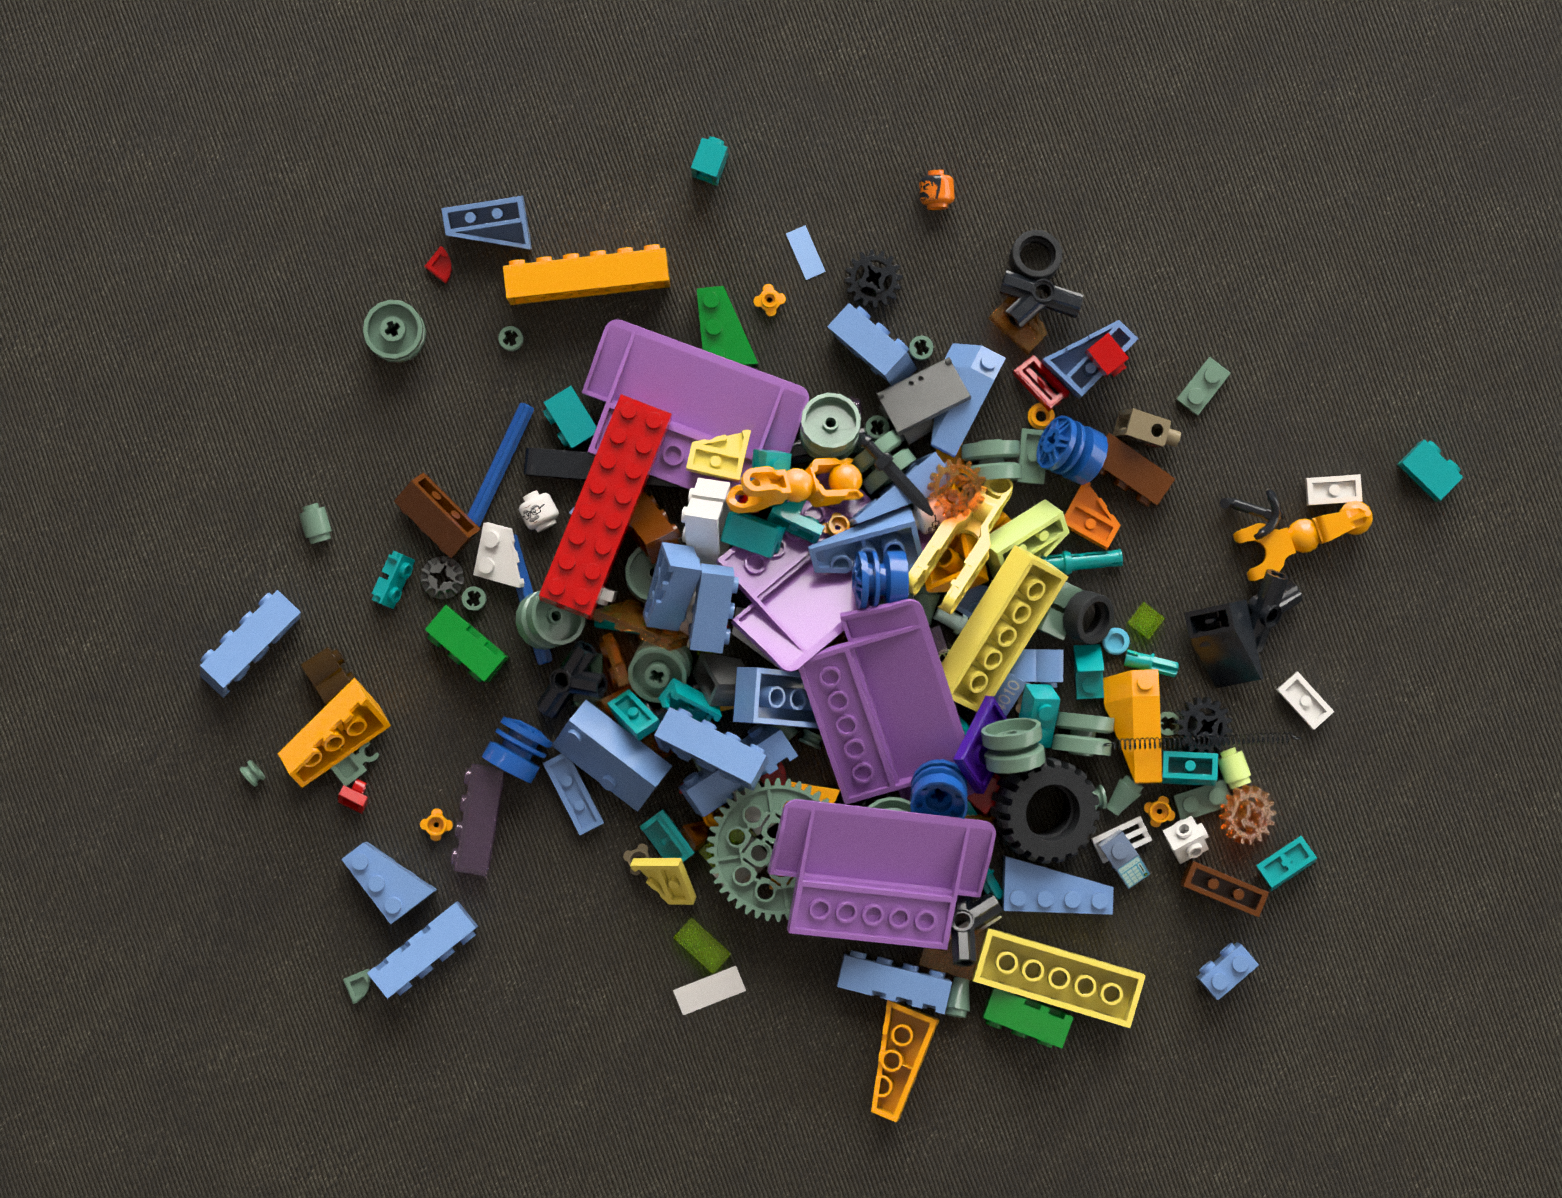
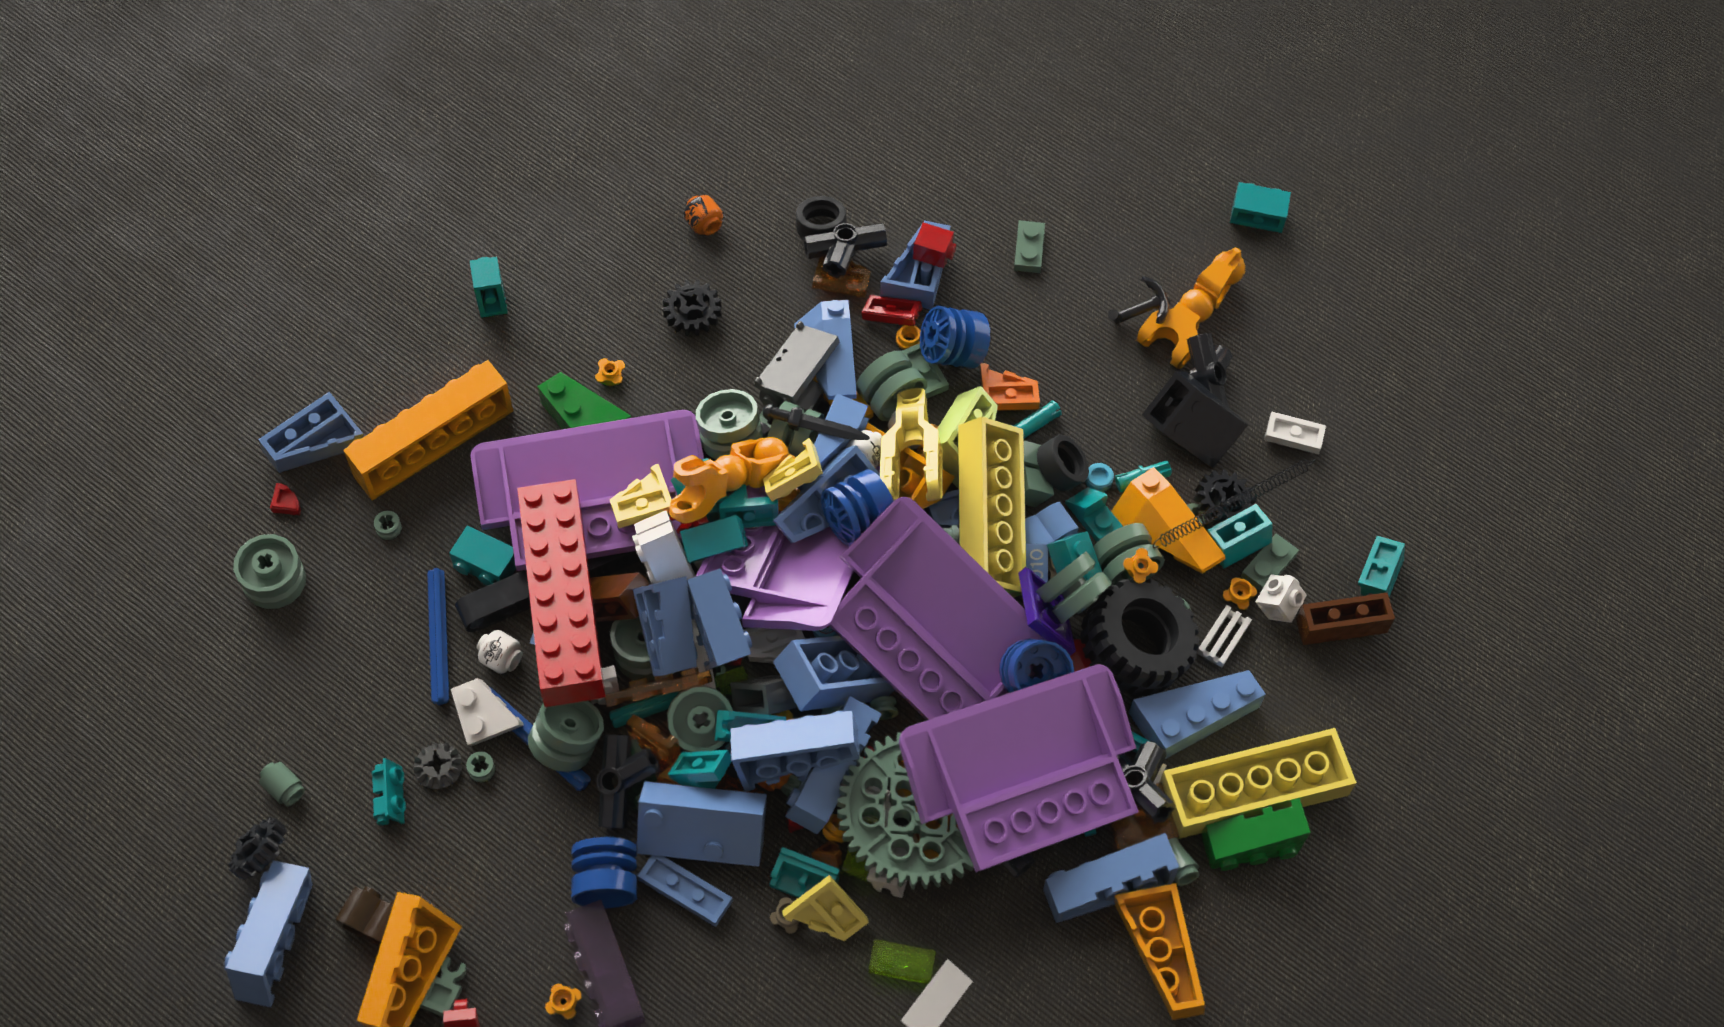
camera: 30 degrees left, 25 degrees down
(270, 572) = (257, 848): none -> black gear
(437, 515) = (400, 708): reddish brown brick -> none
(466, 644) = (497, 808): green wedge -> none
(805, 252) = (619, 323): light blue sticker -> none
(849, 516) = (793, 472): none -> light yellow wing
(872, 344) = (723, 353): medium blue wedge -> none
(912, 350) = (772, 333): sand green bush -> none
(954, 477) = (875, 405): clear orange gear -> none
(1078, 752) = (1140, 574): none -> light orange plate
(1124, 794) = (1199, 594): sand green cone -> none
(1124, 858) = (1239, 643): sand blue slope -> none
(1135, 473) = (1022, 335): reddish brown brick -> none
(1137, 425) = (1004, 295): dark tan torso -> none
(1145, 620) = (1113, 447): clear neon green plate -> none
(1227, 970) = (1401, 689): medium blue brick -> none
(1234, 768) = (1282, 518): yellowish green brick -> none
(1247, 814) = (1317, 547): clear orange gear -> none
(1333, 489) = (1191, 263): white plate -> none

